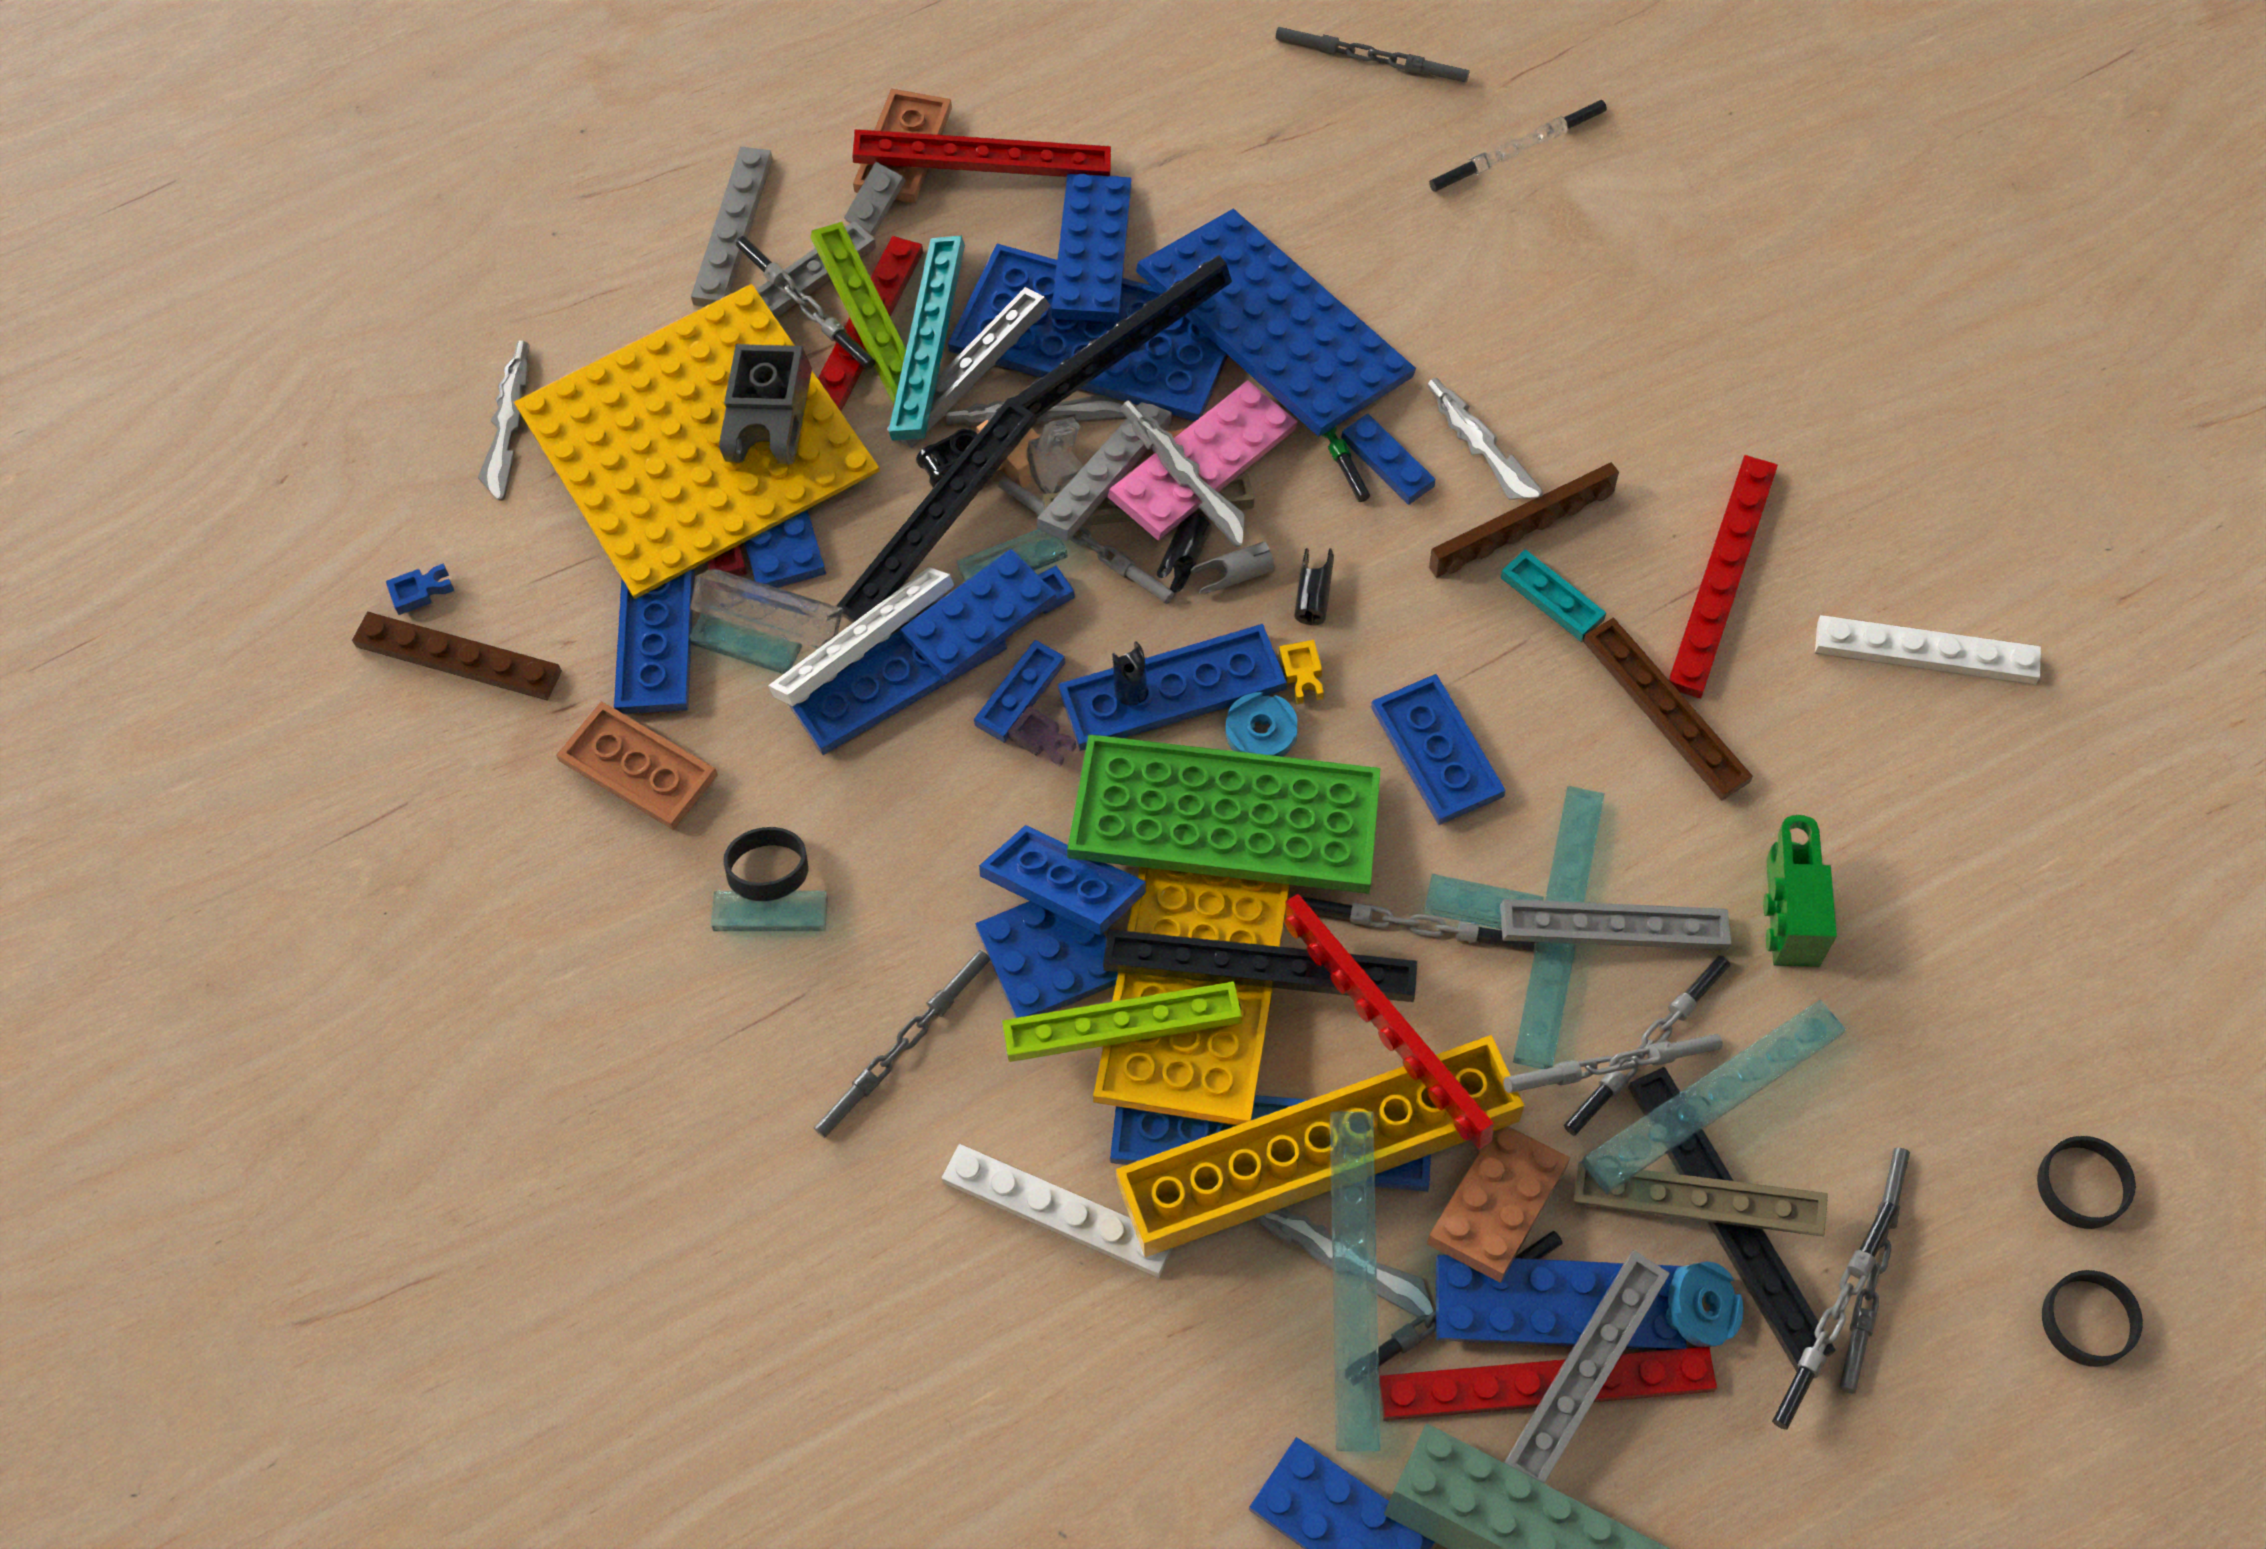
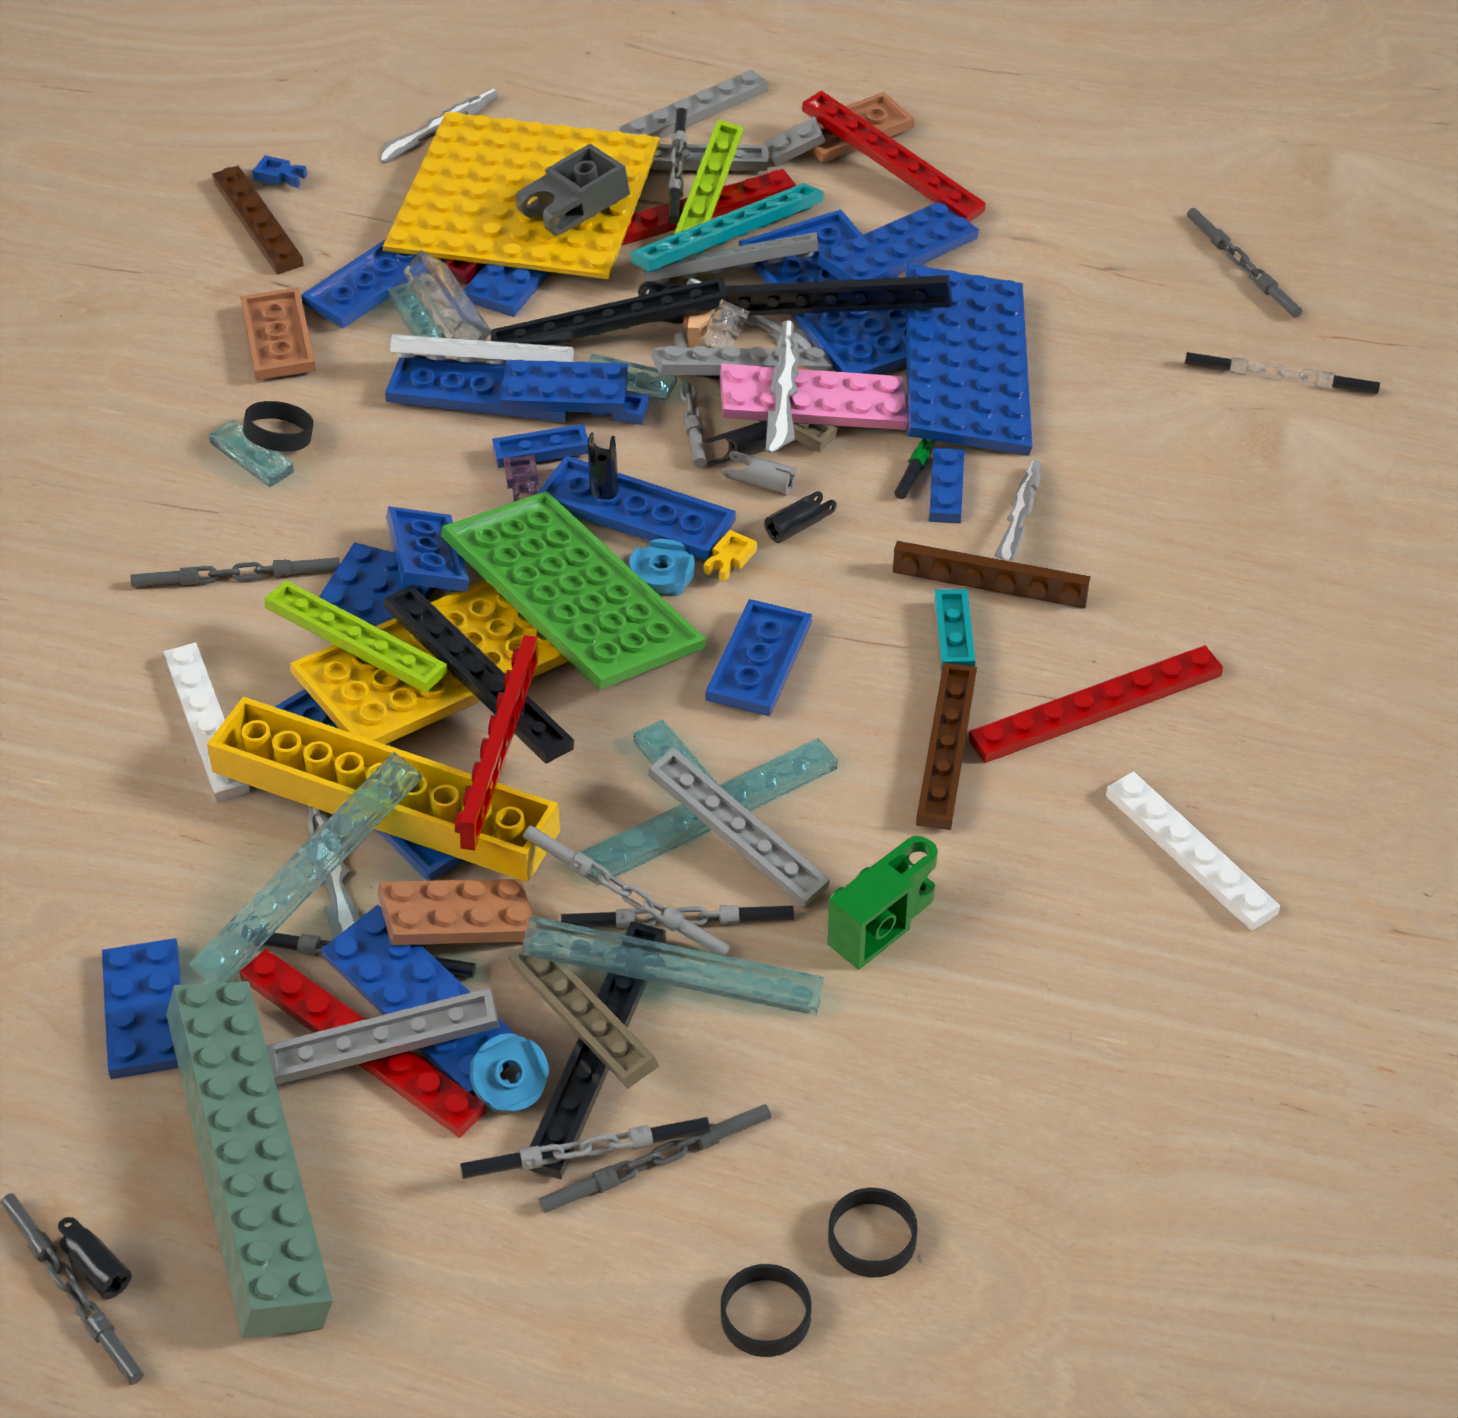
camera: 40 degrees right, 15 degrees down
(1362, 915) = (591, 711): piece -> none

